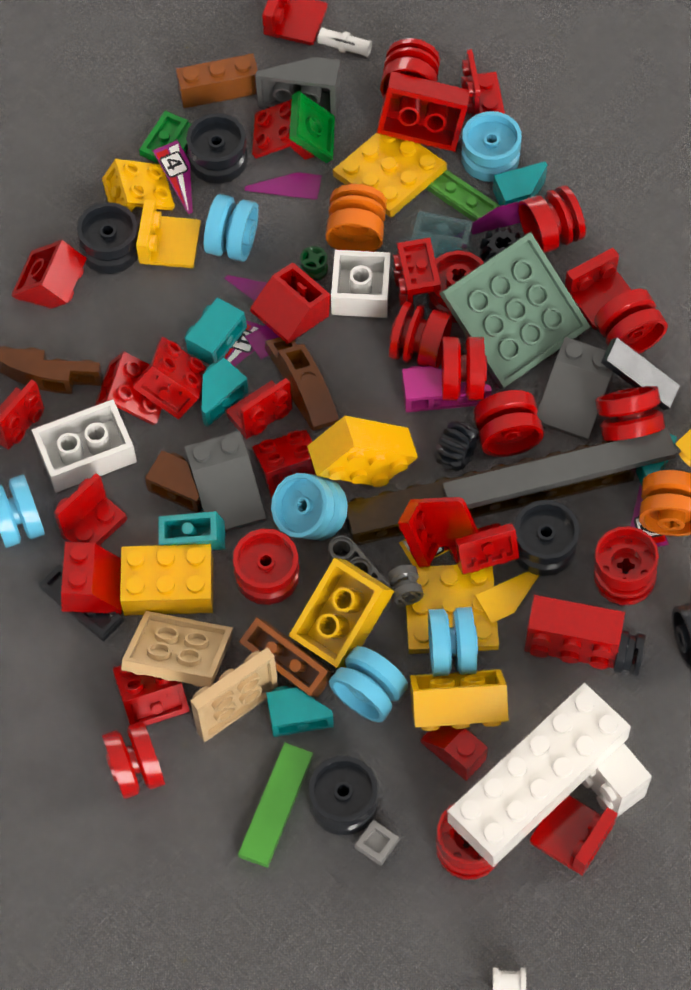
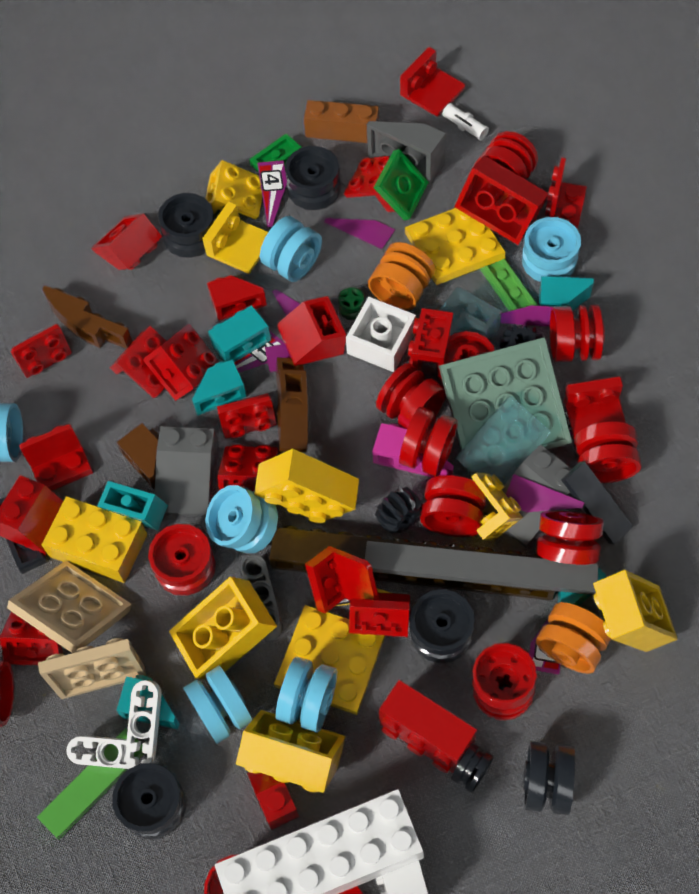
camera: 25 degrees right, 0 degrees up
(84, 445) = (81, 396): white brick -> none
(190, 294) = (234, 294): none -> red slope
(290, 658) = (158, 650): dark orange brick -> none
(297, 756) = (125, 746): none -> white beam
(377, 842) = (161, 858): light grey plate -> none
(405, 583) = (293, 623): dark grey wheel -> none
(506, 597) = (383, 668): yellow sticker -> none
(529, 349) = (503, 441): none -> clear light blue plate
(555, 423) = (507, 508): none -> yellow bracket
(579, 389) = (535, 497): none -> magenta sticker

